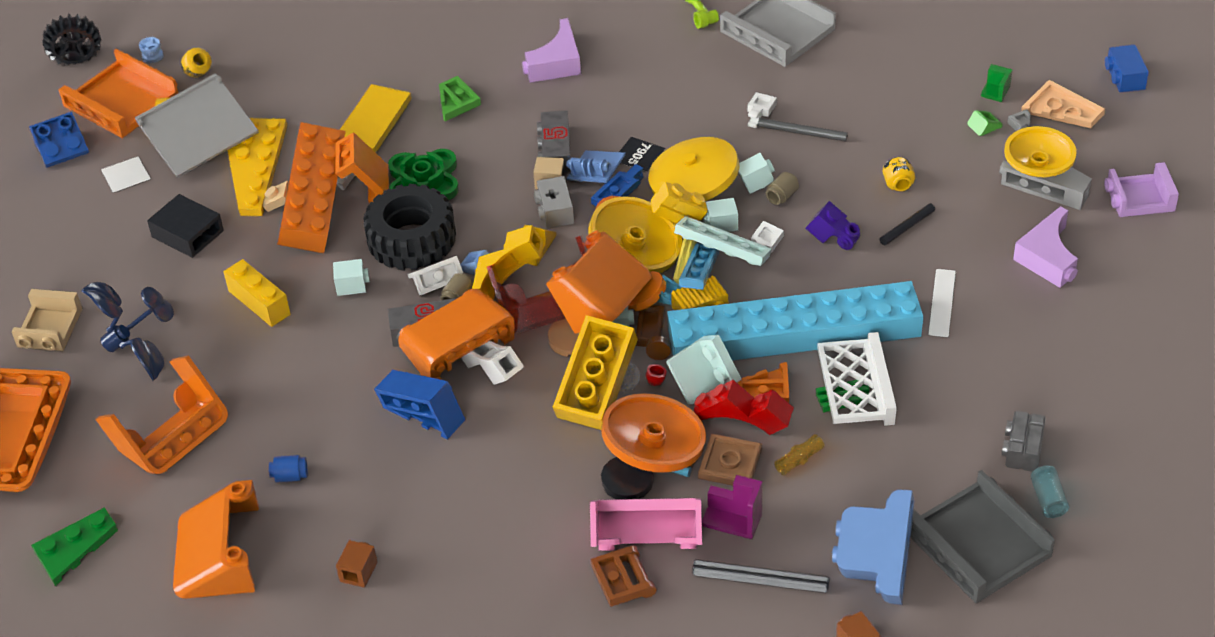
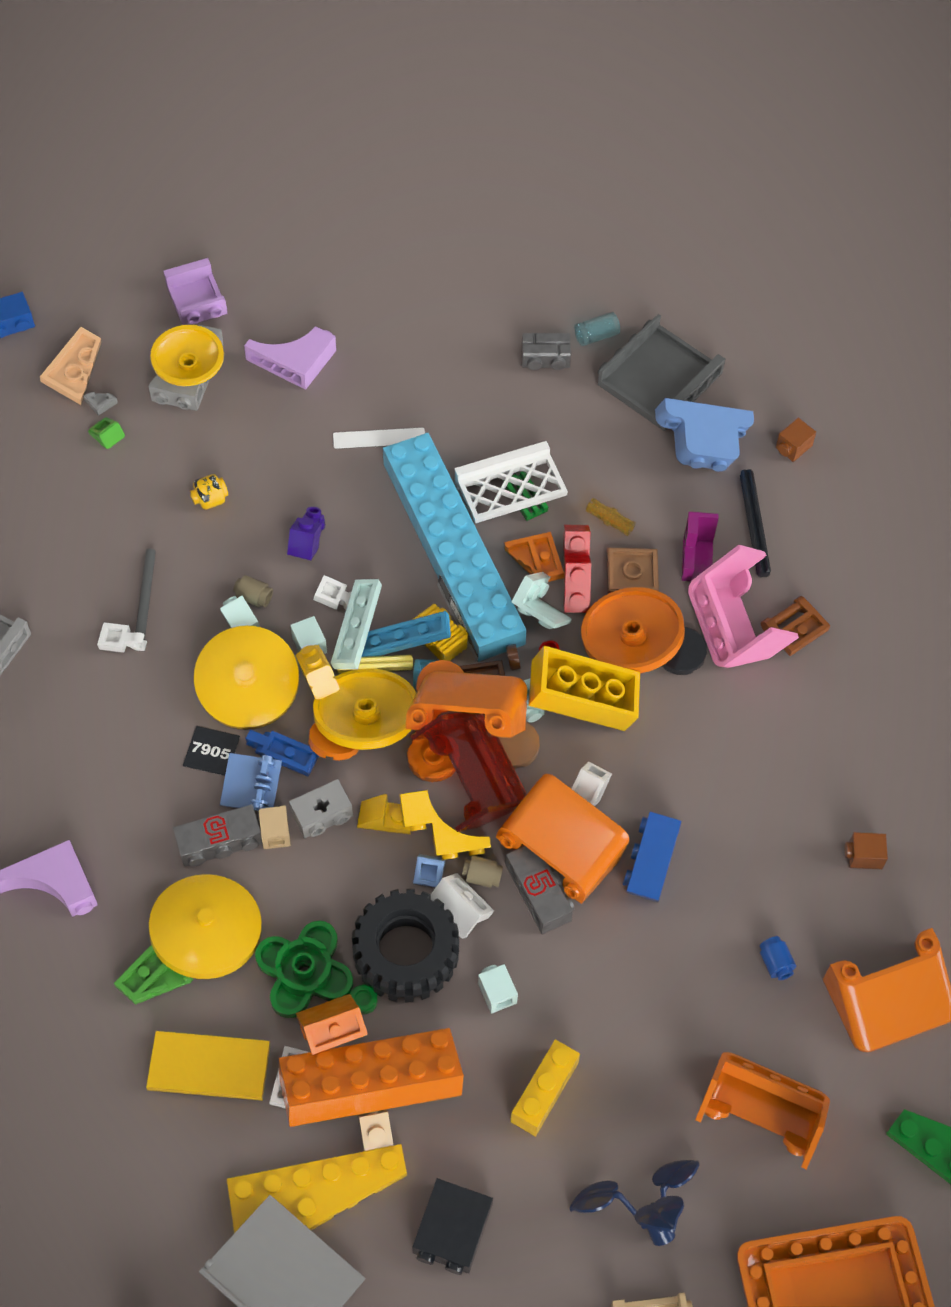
camera: 110 degrees left, 15 degrees up
(482, 127) = (205, 926): none -> yellow dish
(907, 224) = (278, 478): black bar -> none
(997, 83) = (46, 424): green panel -> none

